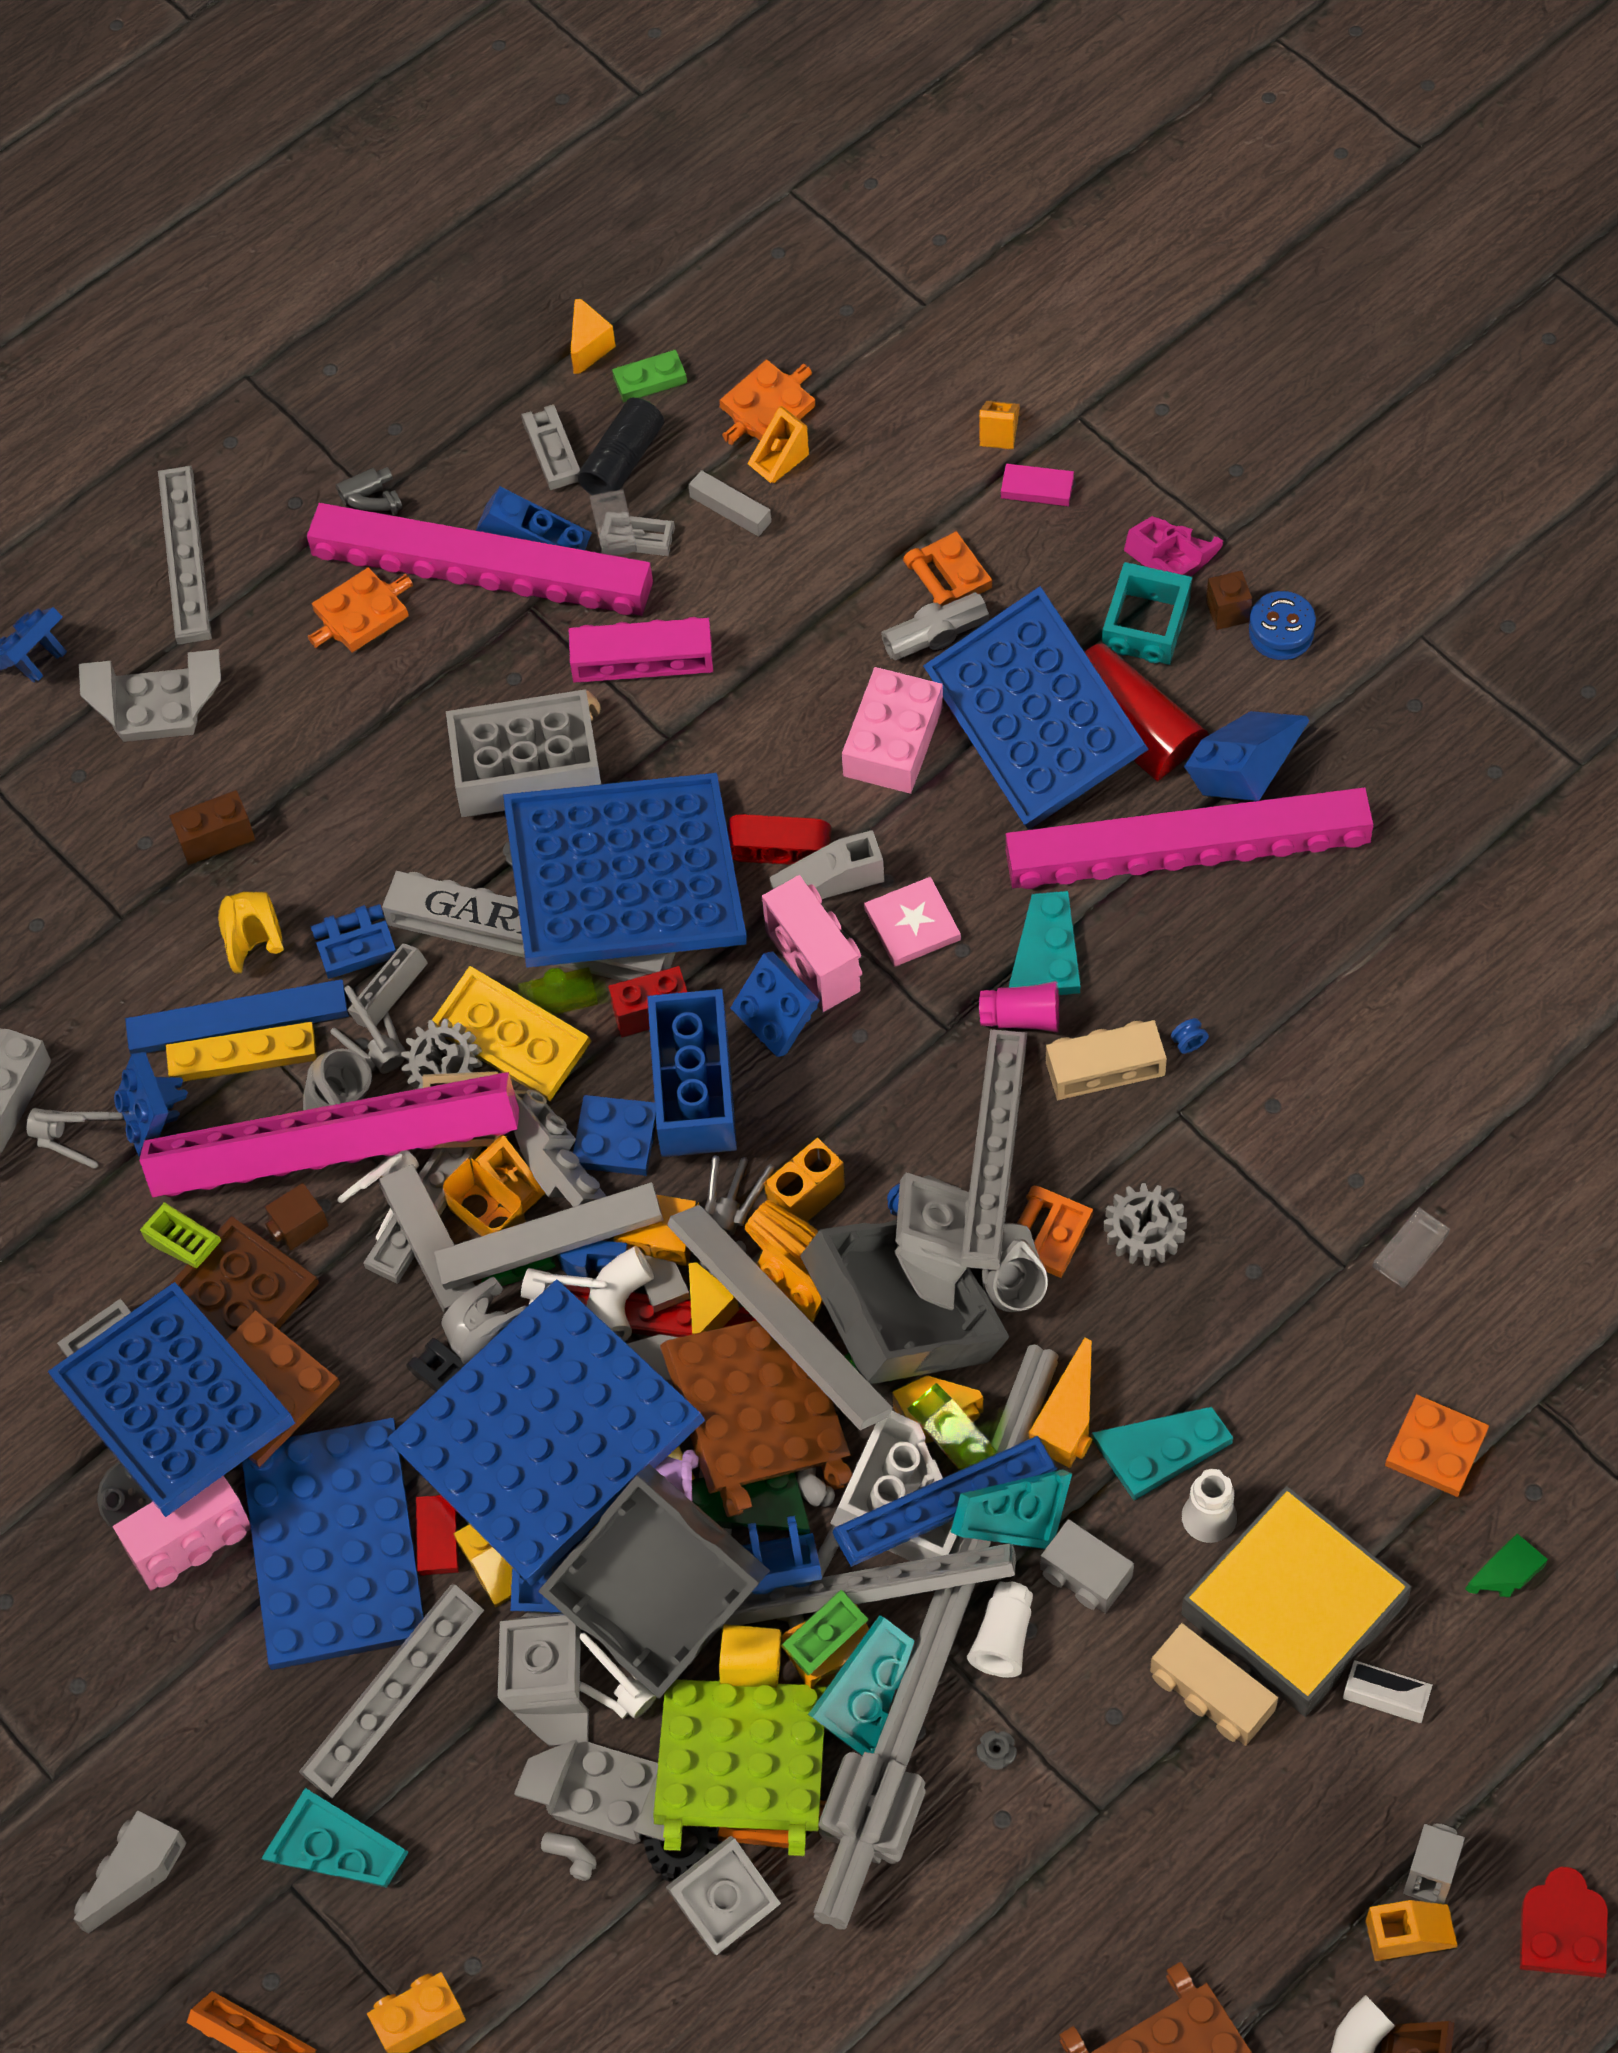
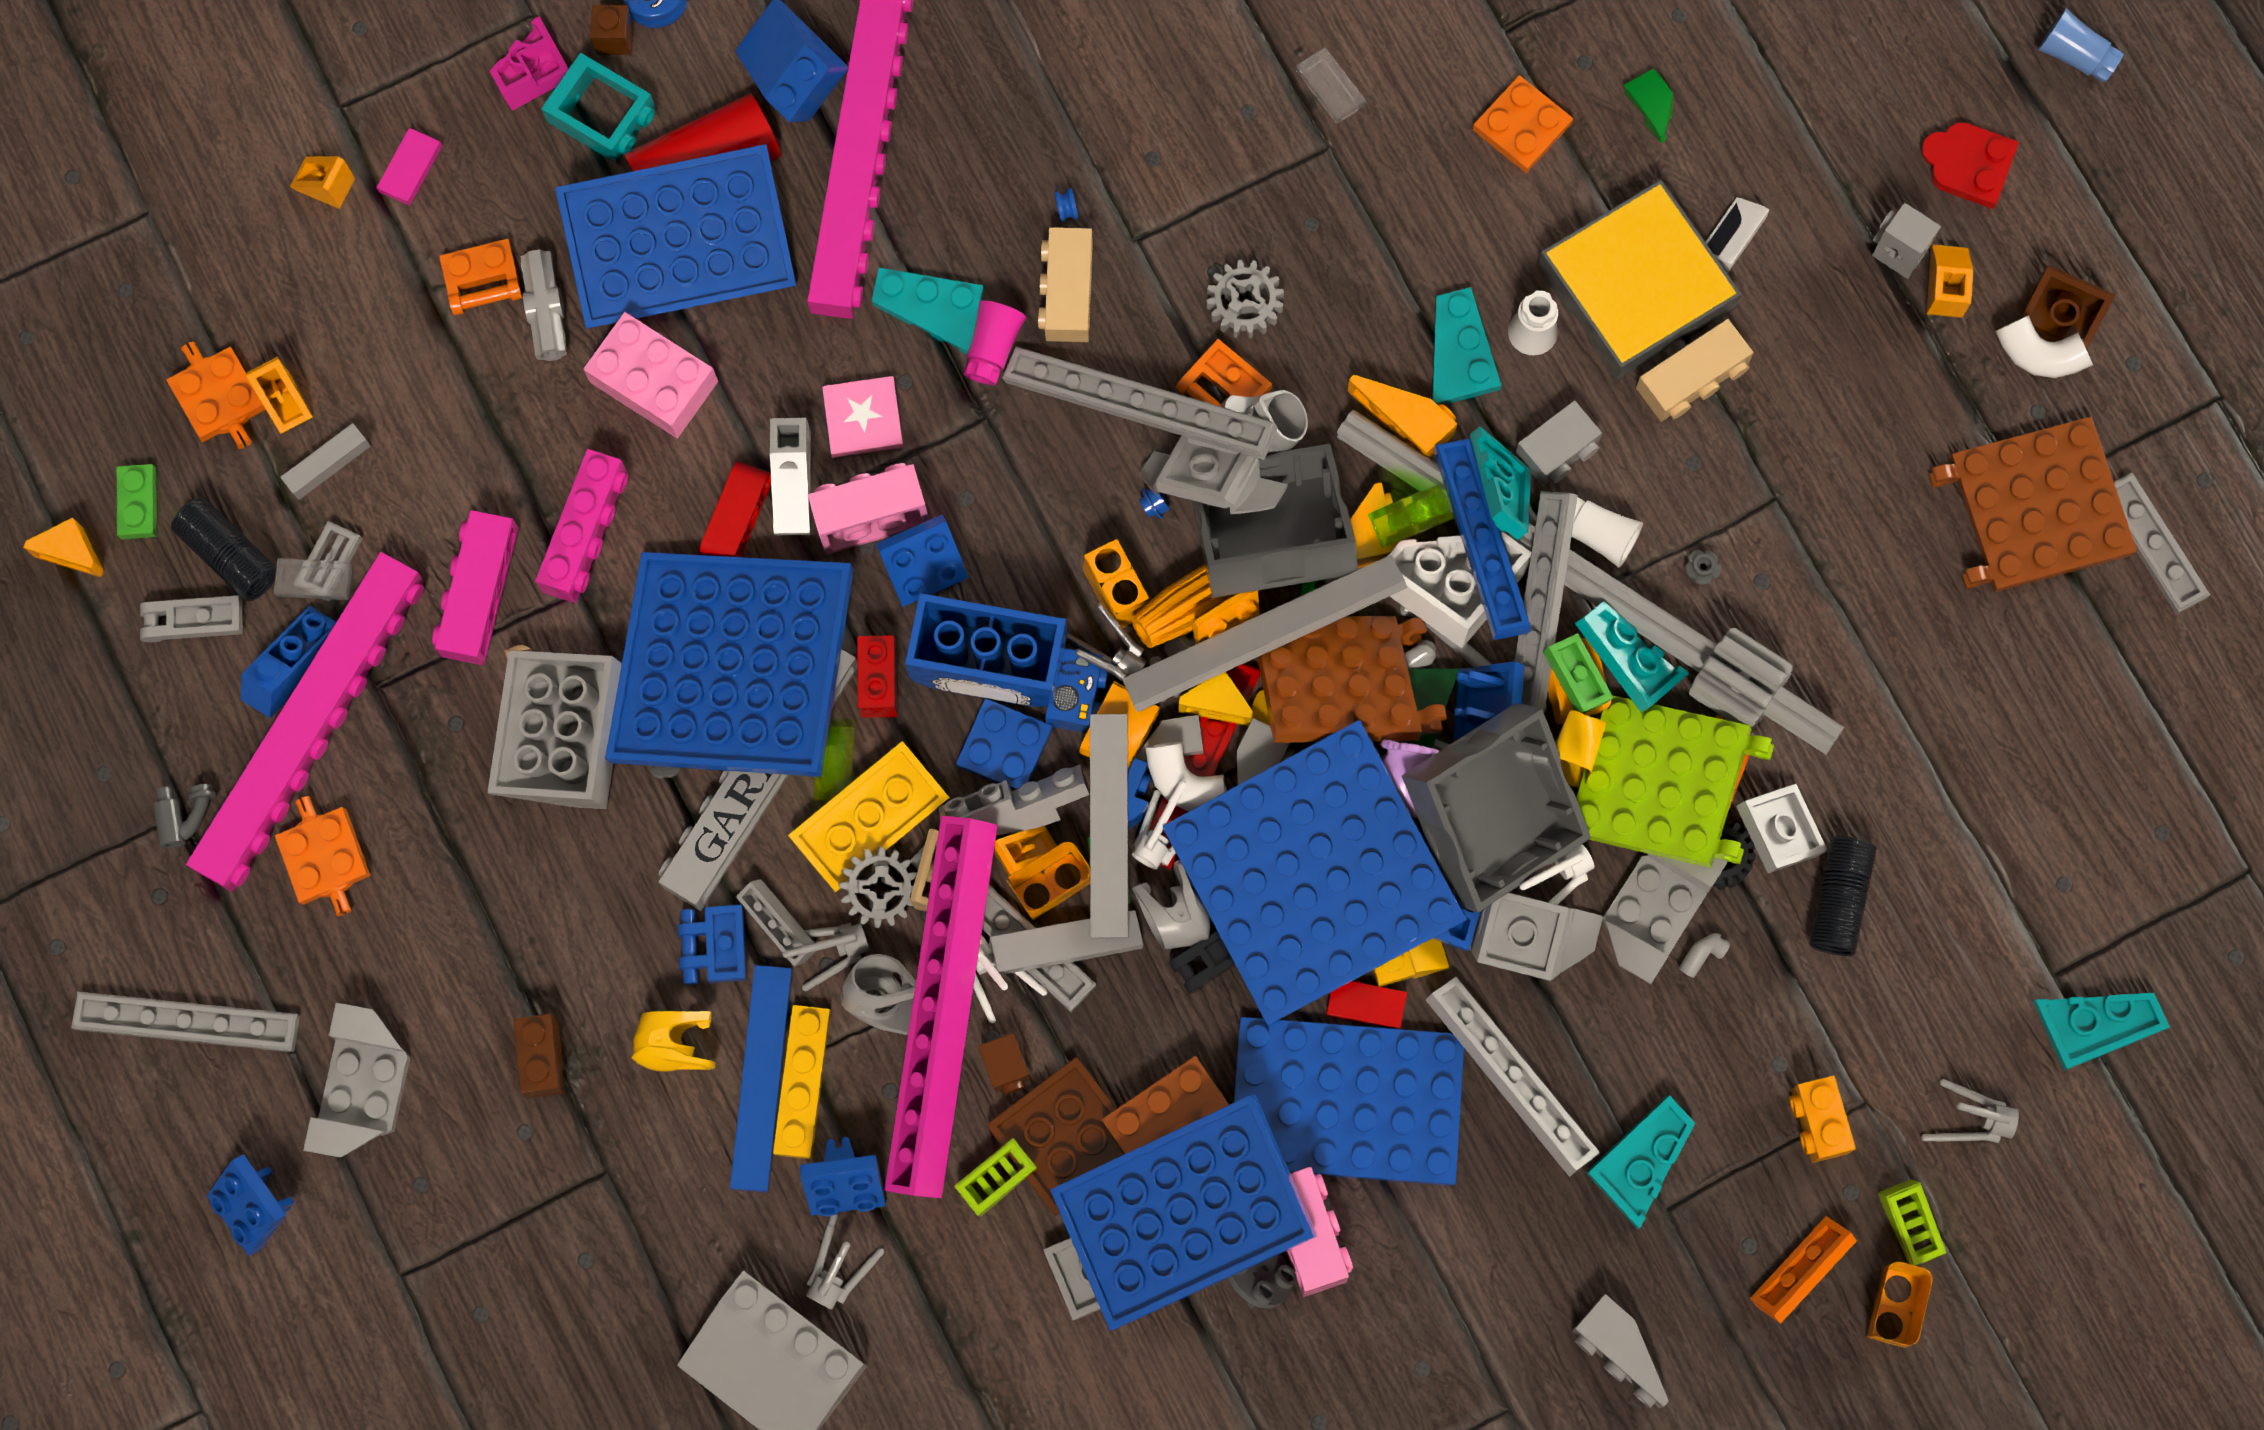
camera: 75 degrees left, 15 degrees up
(666, 1979) = (1842, 902): none -> black piece
(684, 1175) = (1076, 693): none -> blue brick
(726, 716) = (582, 526): none -> dark pink brick

